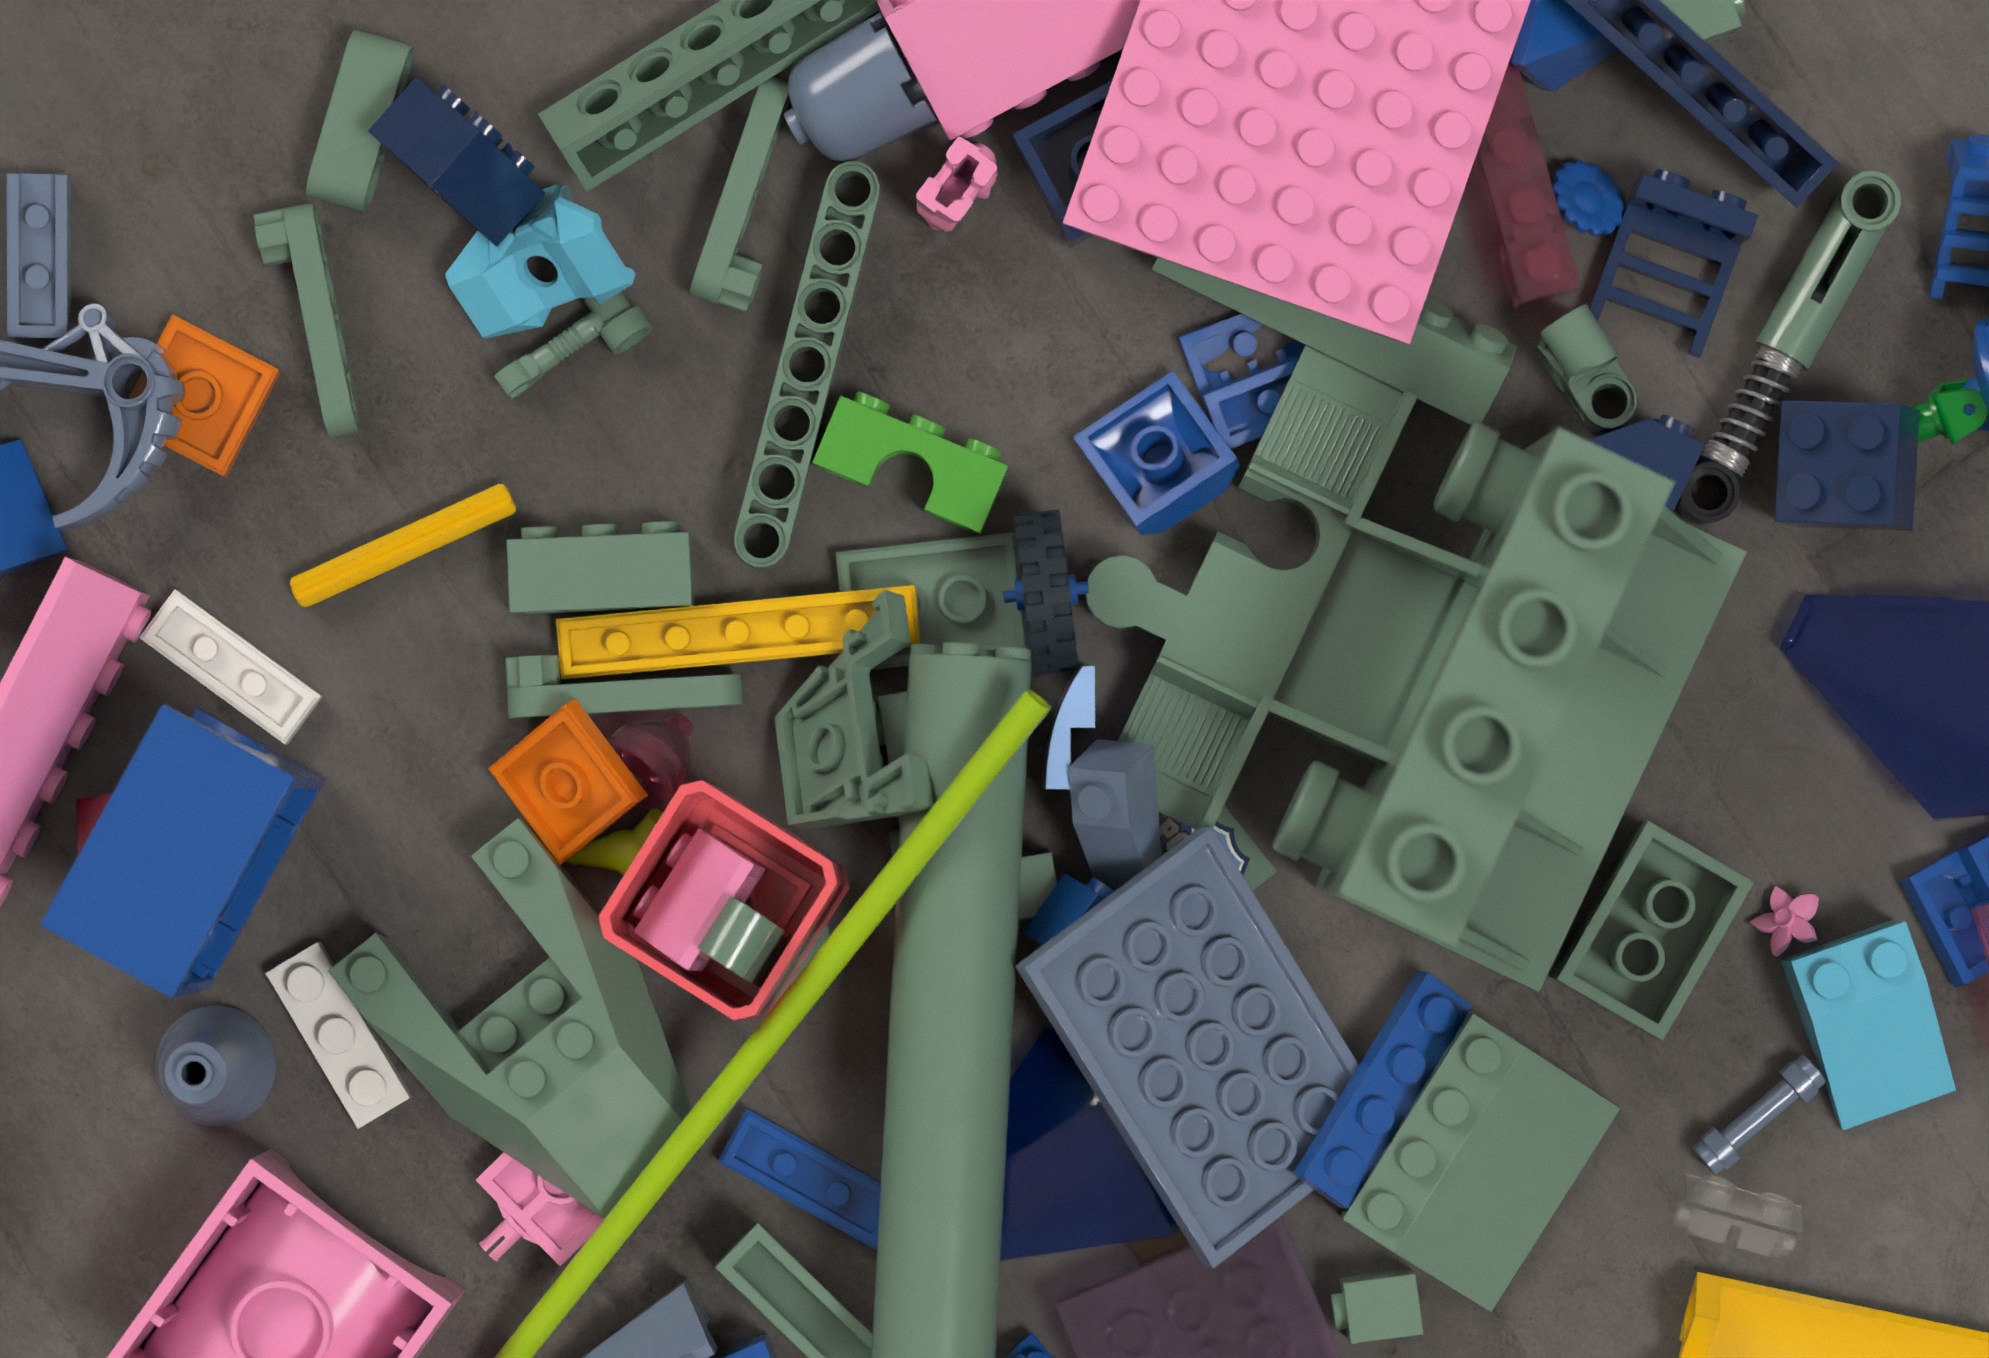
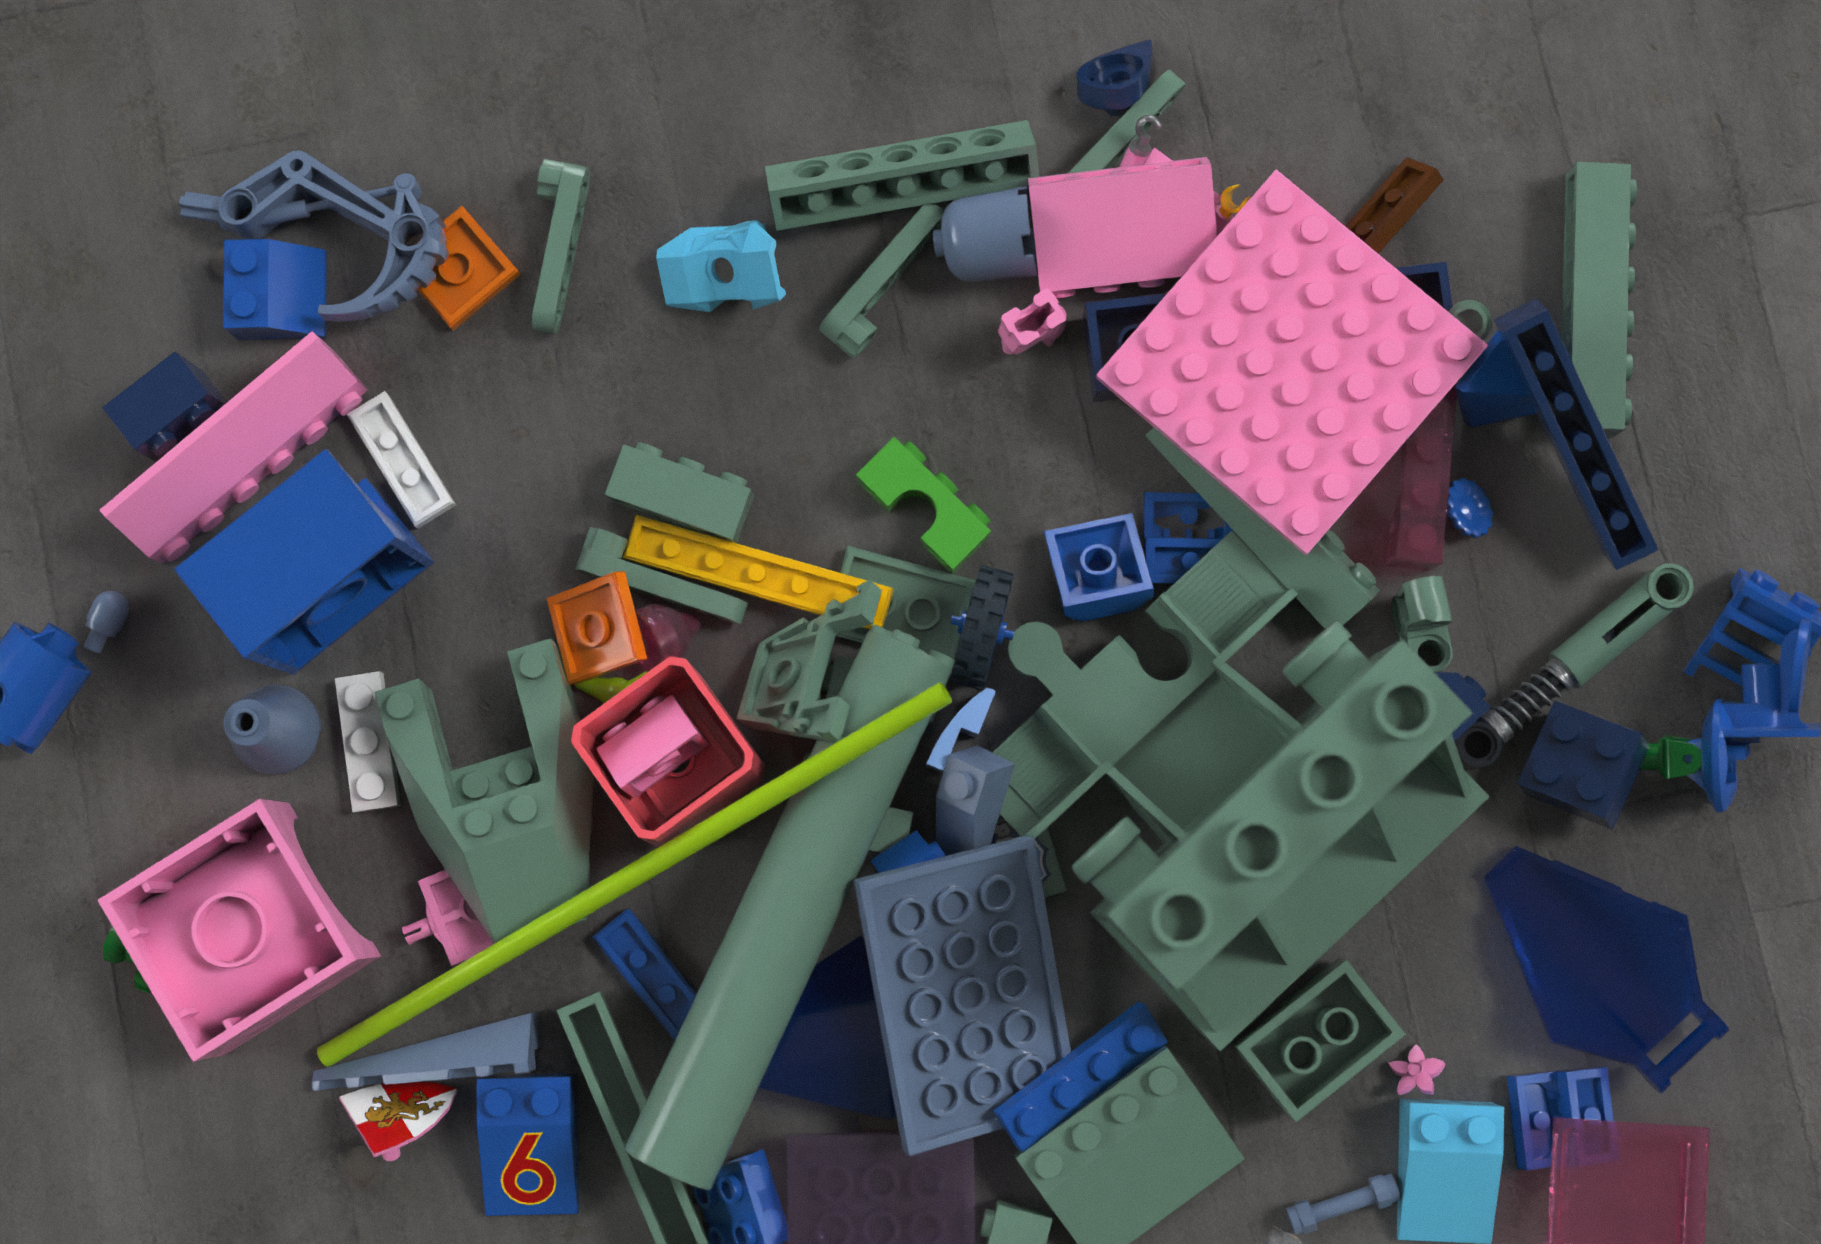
camera: 30 degrees right, 5 degrees down
(39, 255) = (389, 129): sand blue hinge -> none
(347, 155) = (642, 125): sand green beam -> none
(402, 545) = (552, 423): yellow axle -> none
(459, 158) = (697, 170): dark blue brick -> none
(613, 320) = (759, 324): sand green brick -> none
(745, 942) = (668, 784): sand green beam -> none
(803, 336) = (883, 388): sand green beam -> none
(1687, 221) = (1534, 552): dark blue plate -> none

